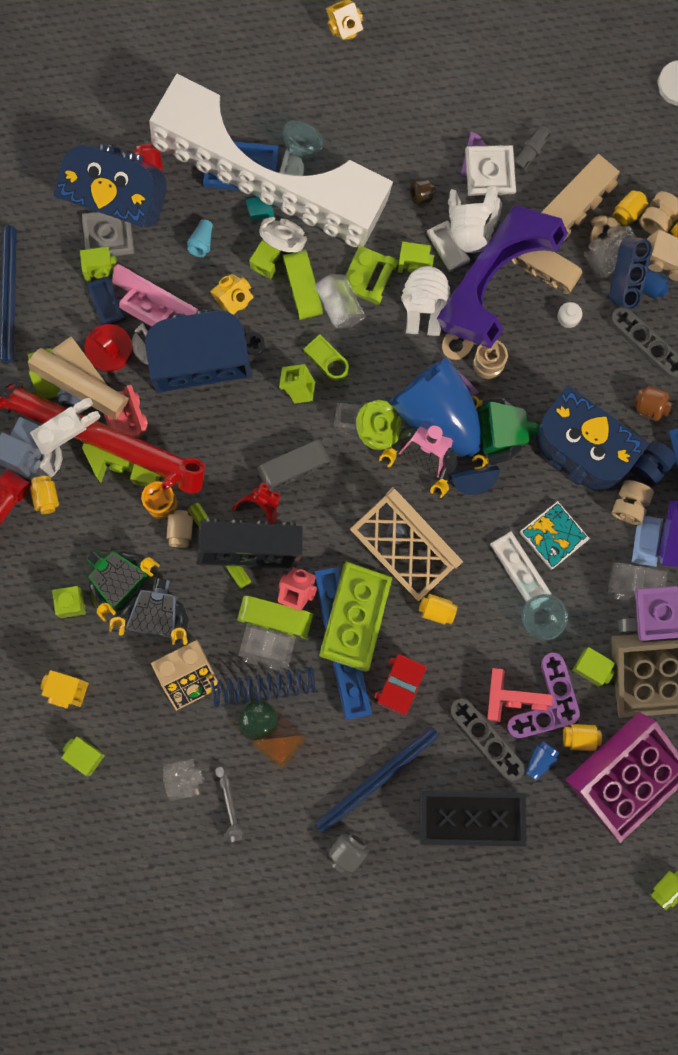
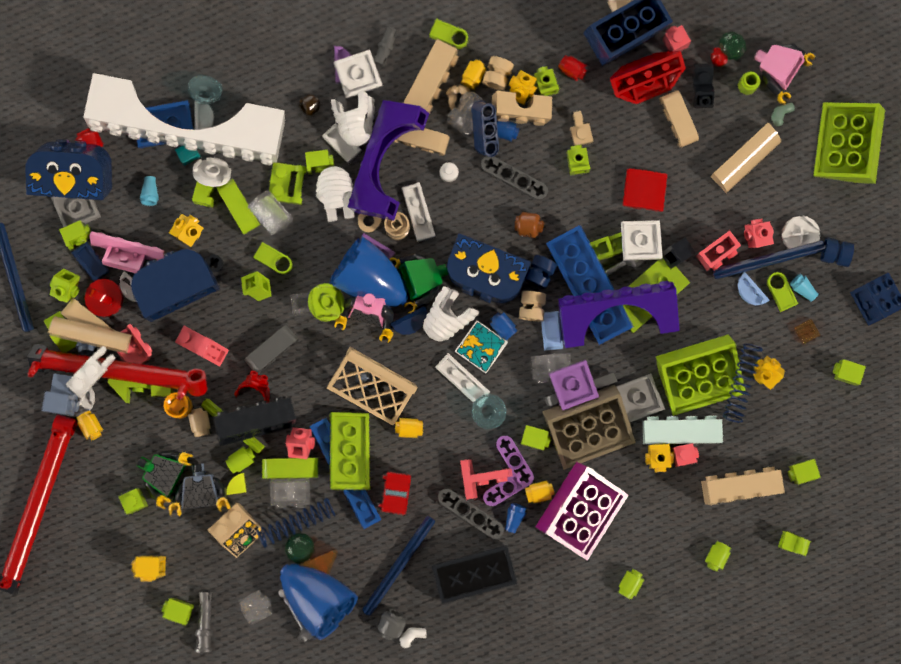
camera: 15 degrees left, 5 degrees up
(65, 318) = (64, 285): none -> lime brick
(107, 792) = (204, 633): none -> flat silver pin
(203, 619) = (237, 485): none -> neon yellow tile
(211, 437) = (202, 346): none -> coral bracket
(216, 589) = (240, 459): none -> lime brick
(262, 791) = (316, 598): none -> blue cylinder
(367, 873) = (410, 634): none -> white arm
(513, 490) = (441, 321): none -> white hair
(519, 352) = (418, 212): none -> white tile
(589, 516) = (503, 325): none -> blue brick
(610, 151) = (444, 33): none -> lime piece

